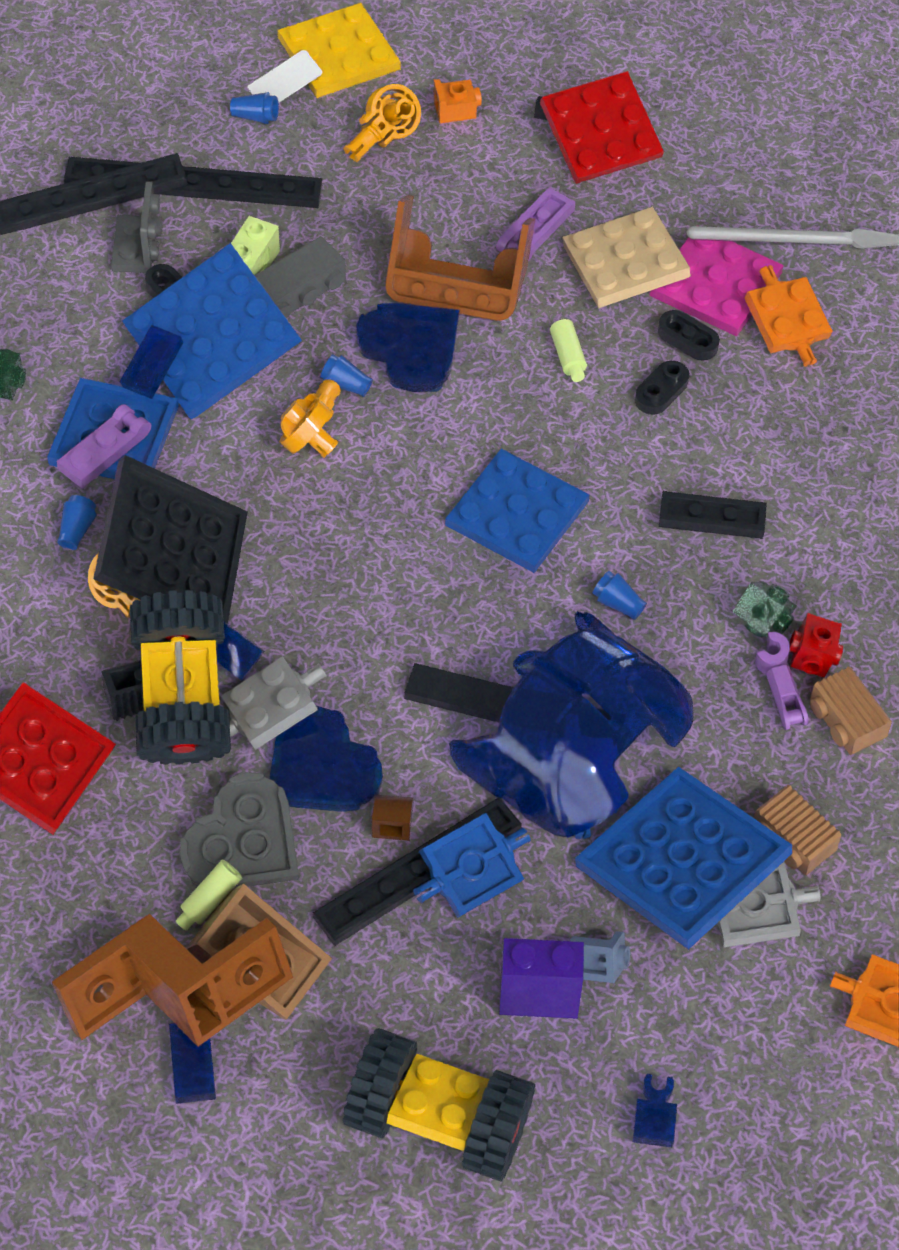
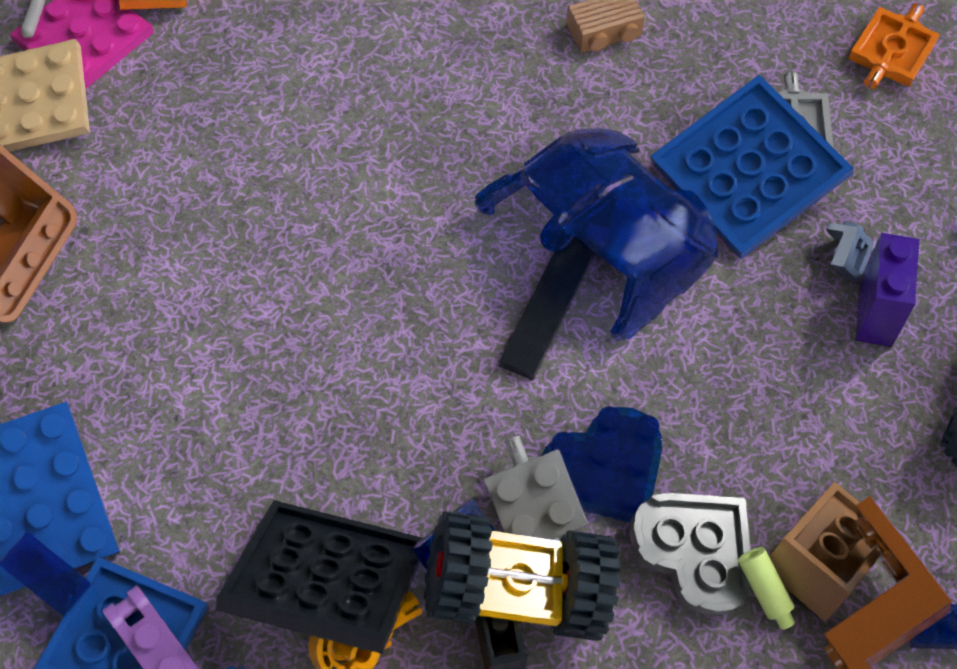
camera: 80 degrees left, 5 degrees up
(306, 417) = (168, 425): light orange pin -> none
(346, 375) = (109, 380): blue cone -> none
(392, 817) = (677, 402): reddish brown brick -> none
(396, 882) = (739, 396): black tile -> none
(412, 342) = (80, 307): clear blue plate -> none
(471, 865) = (747, 338): blue plate -> none
(517, 510) = (324, 245): blue plate -> none
(568, 349) = (135, 167): yellowish green cylinder -> none
(618, 595) = (448, 173): blue cone -> none
(663, 384) = (200, 97): black plate -> none
(691, 335) = (146, 66): black plate -> none
(712, 514) = (369, 84): black plate -> none
(765, 609) = (491, 58): brick -> none
(782, 684) = (586, 64): medium lavender piece -> none
(802, 826) = (720, 78): medium nougat brick -> none
(812, 652) = (537, 28): red brick -> none

